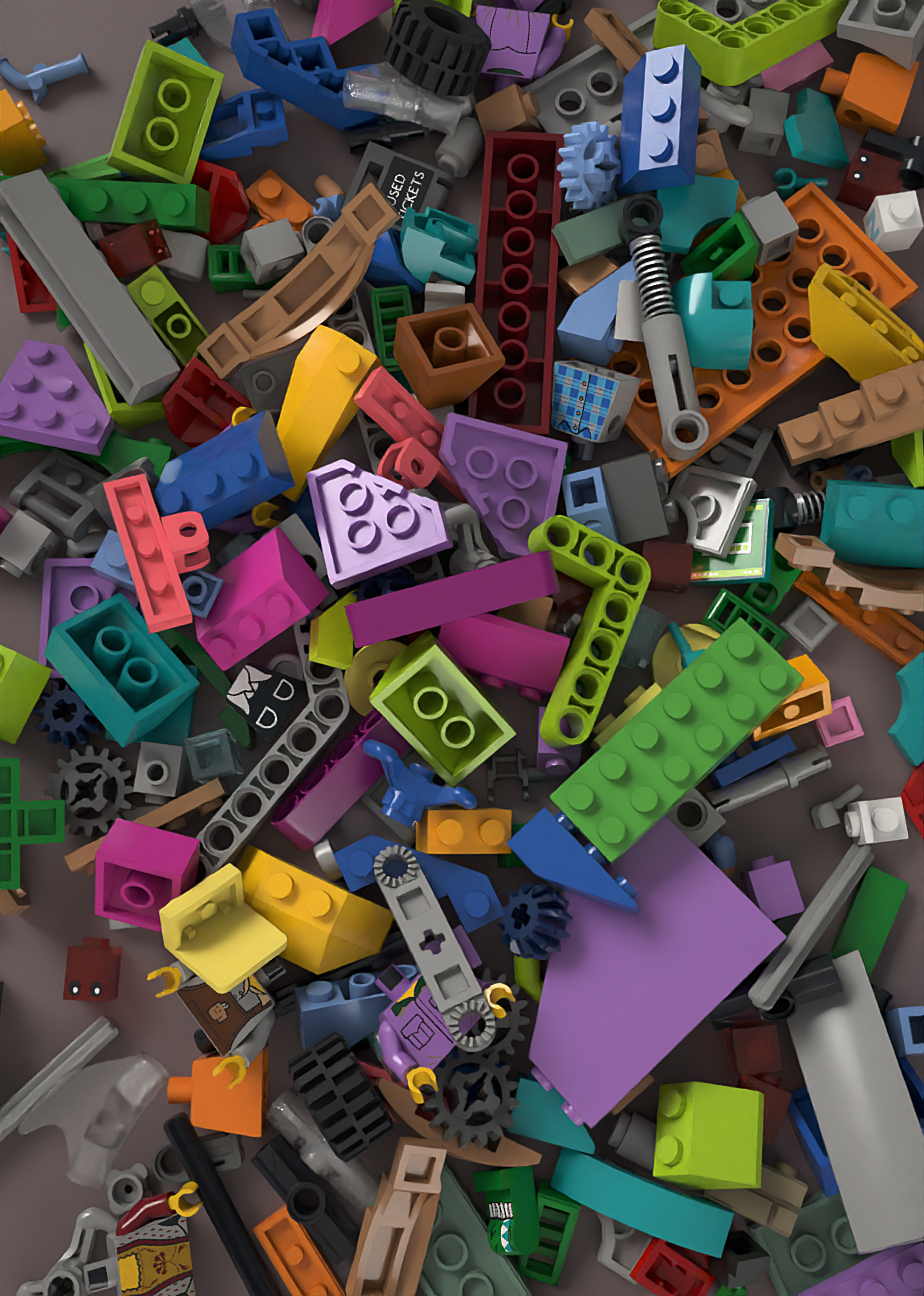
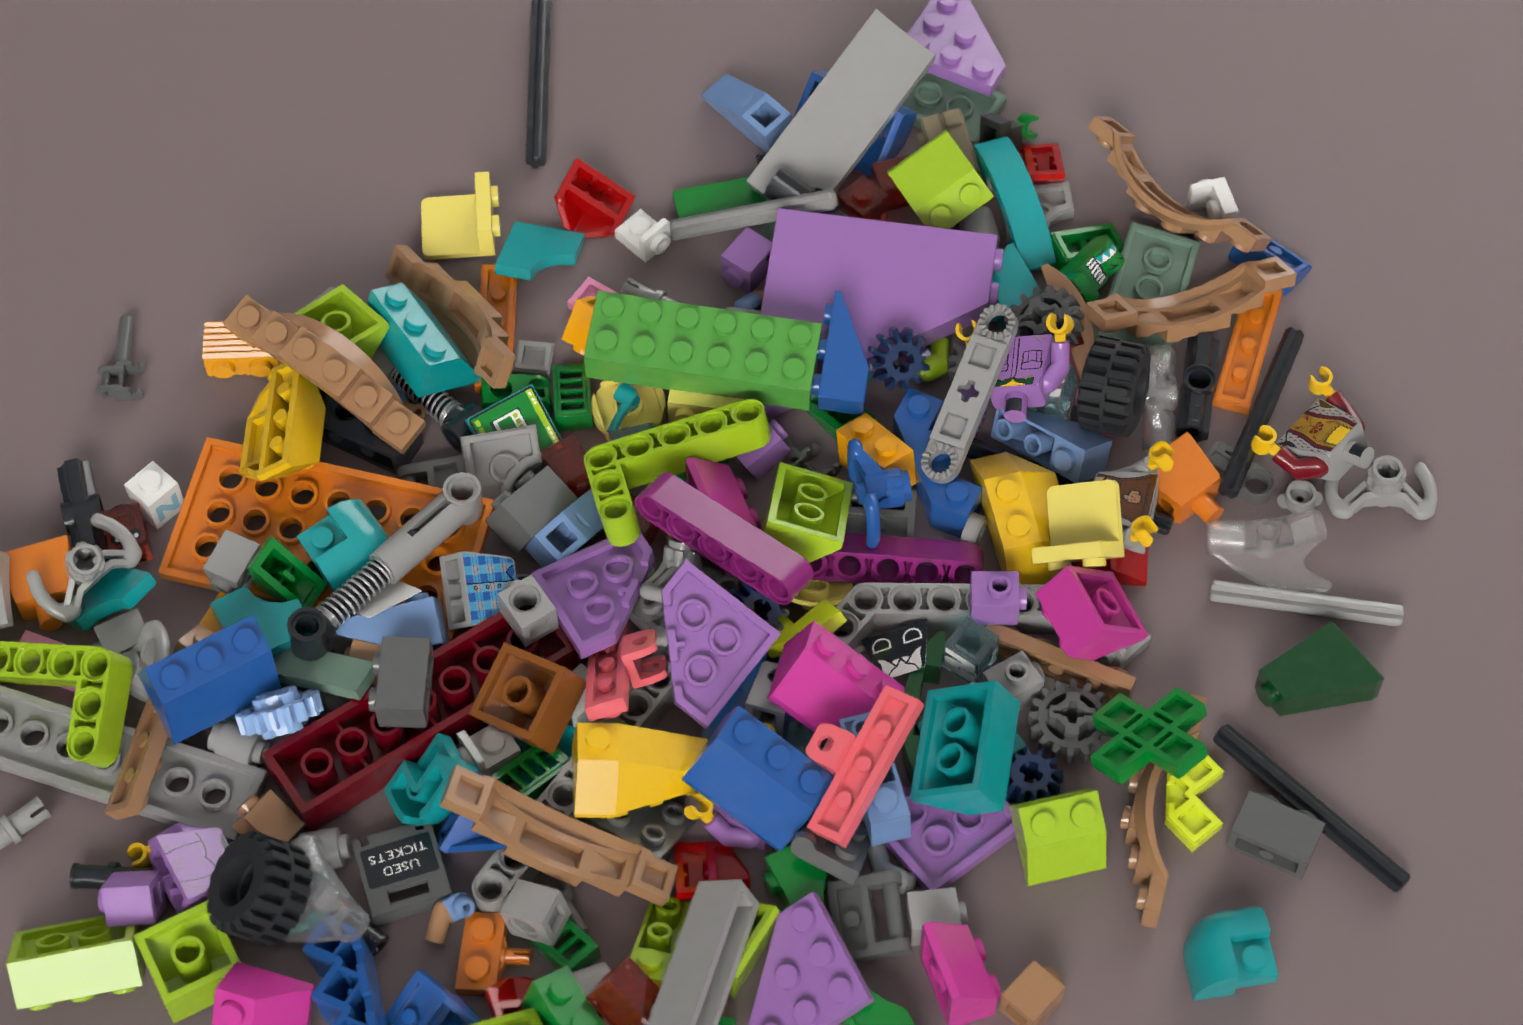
camera: 130 degrees left, 20 degrees down
(92, 971) = (1189, 622): clear red brick -> none
(227, 806) = (996, 597): none -> medium lavender brick
(516, 388) = (529, 624): none -> light grey brick
(534, 263) = (403, 682): none -> dark grey brick
(789, 176) = (163, 590): teal hand -> none
(825, 814) = (663, 267): light grey hand -> none
(848, 111) = (85, 568): none -> light grey piece

